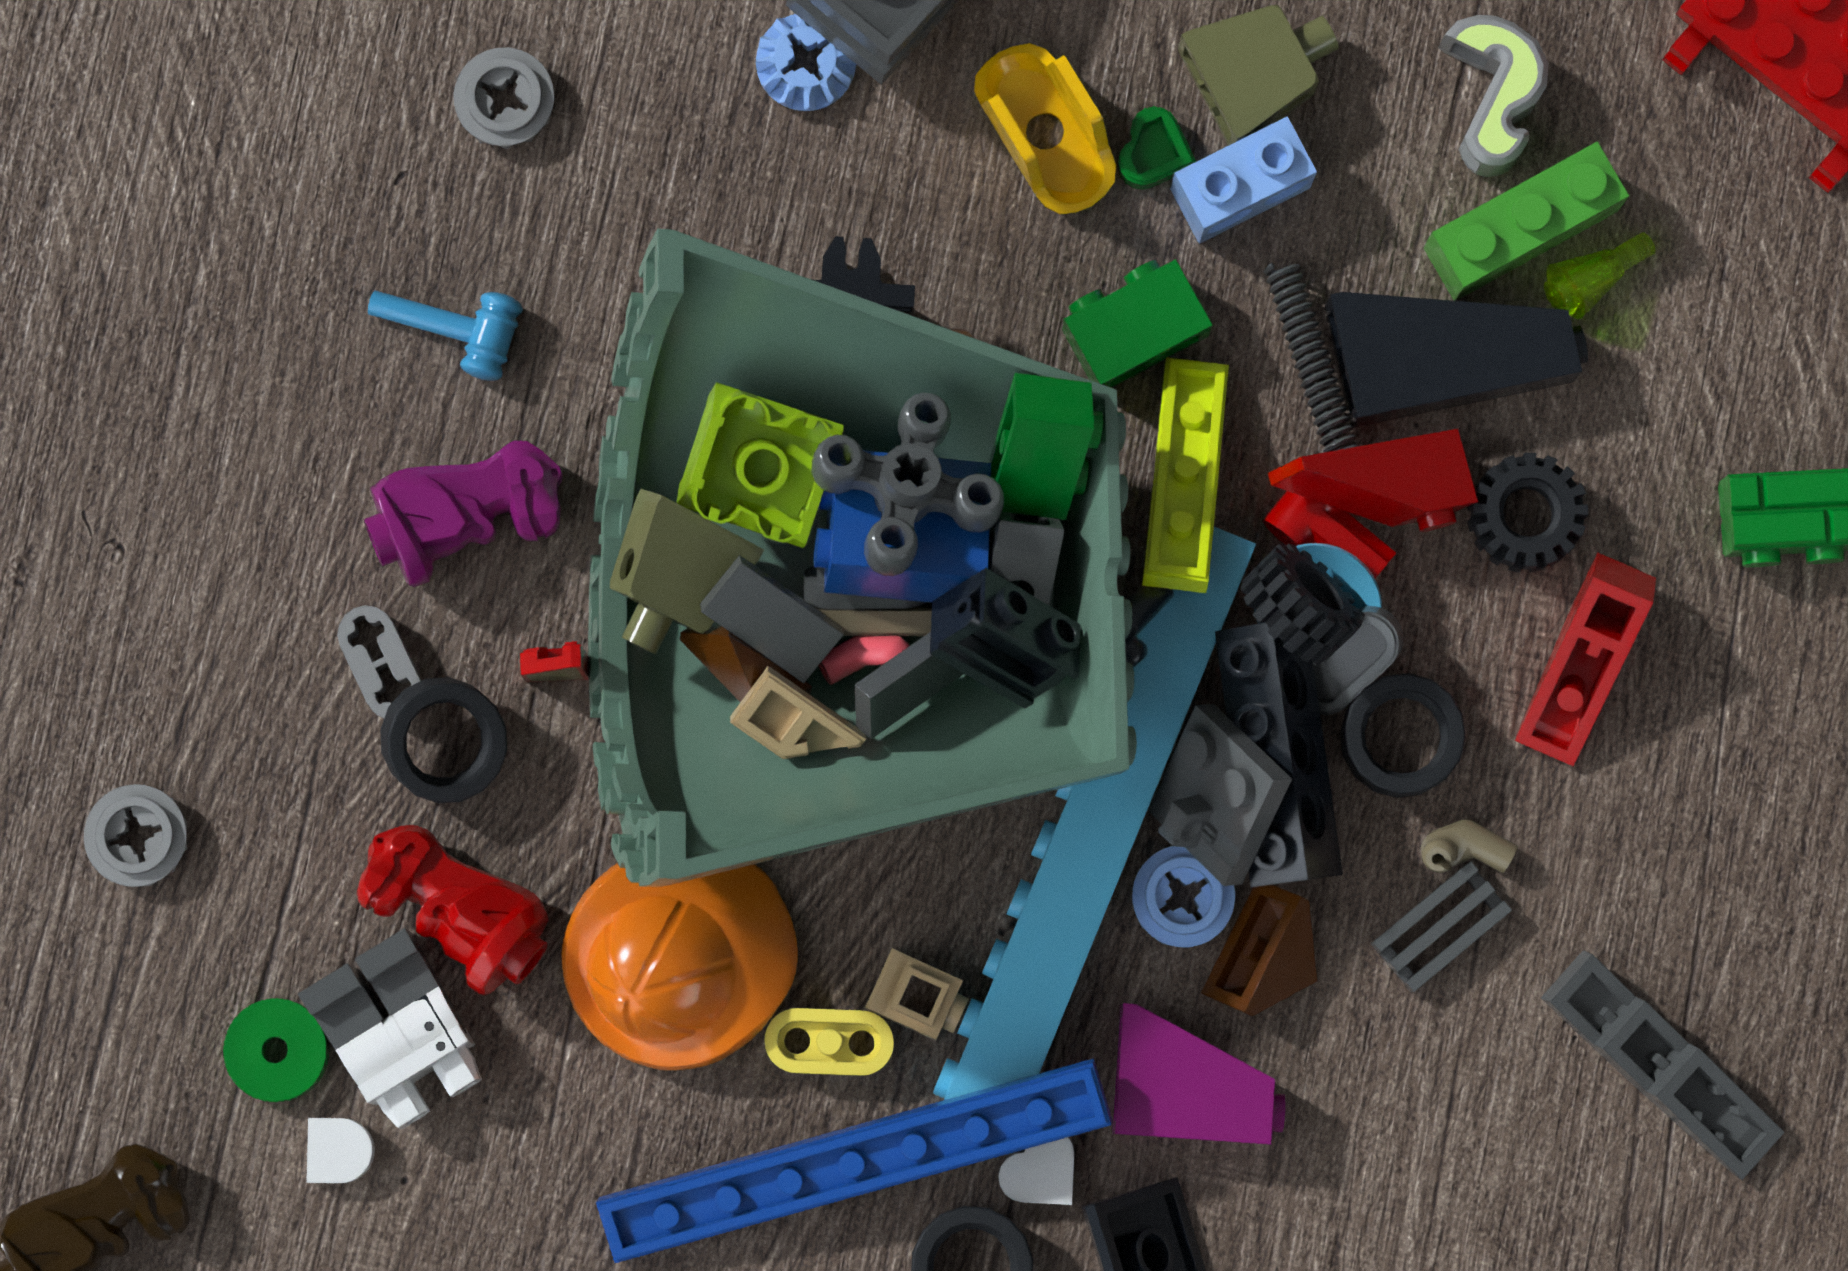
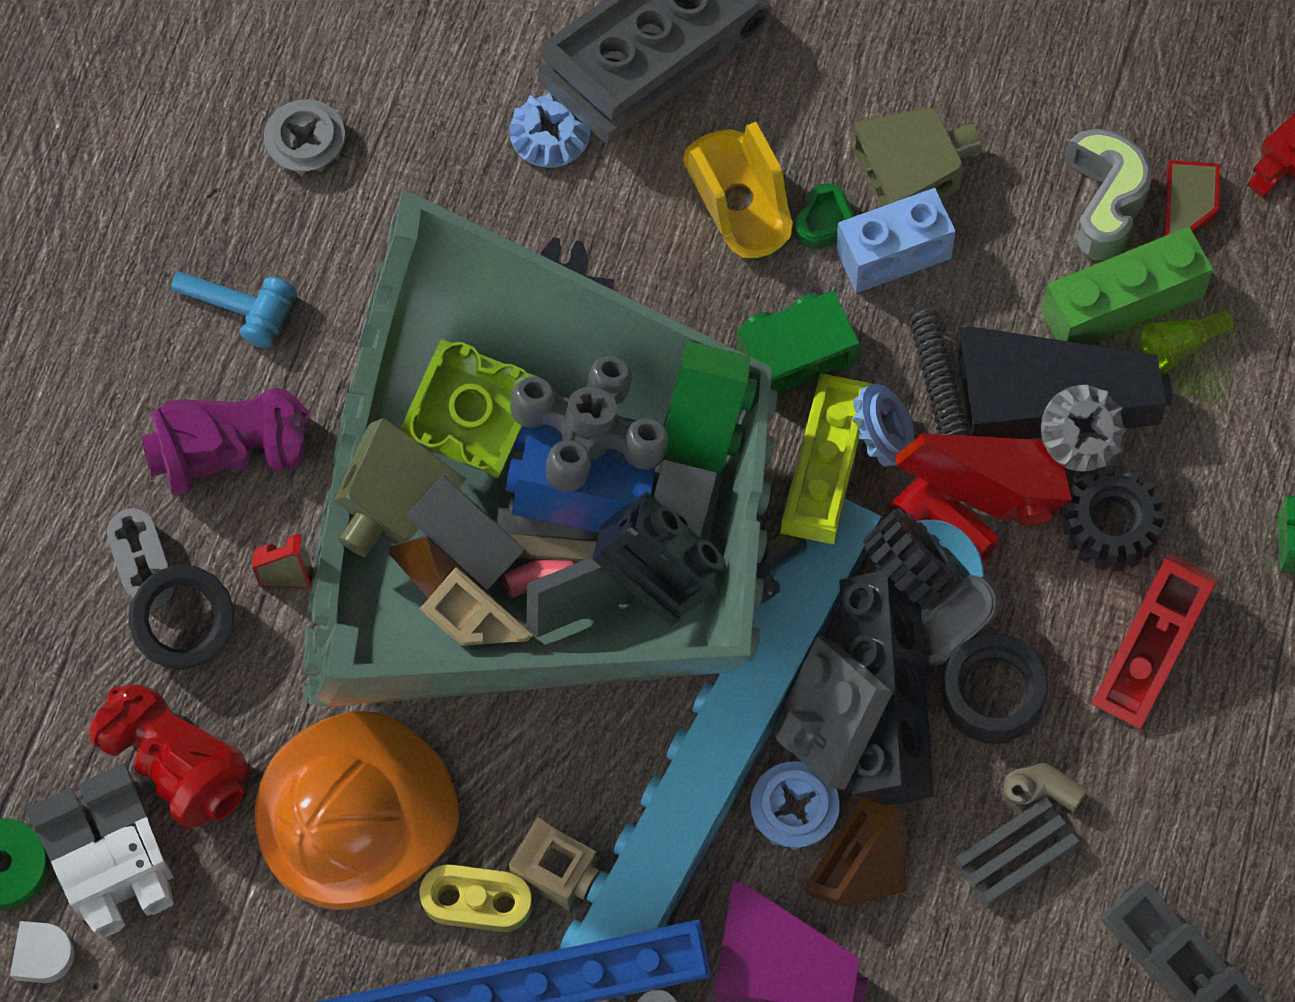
camera: 10 degrees right, 15 degrees down
(1250, 424) = (882, 423): none -> light blue gear
(1461, 426) = (1061, 434): none -> light grey gear
(1592, 89) = (1190, 195): none -> olive tile

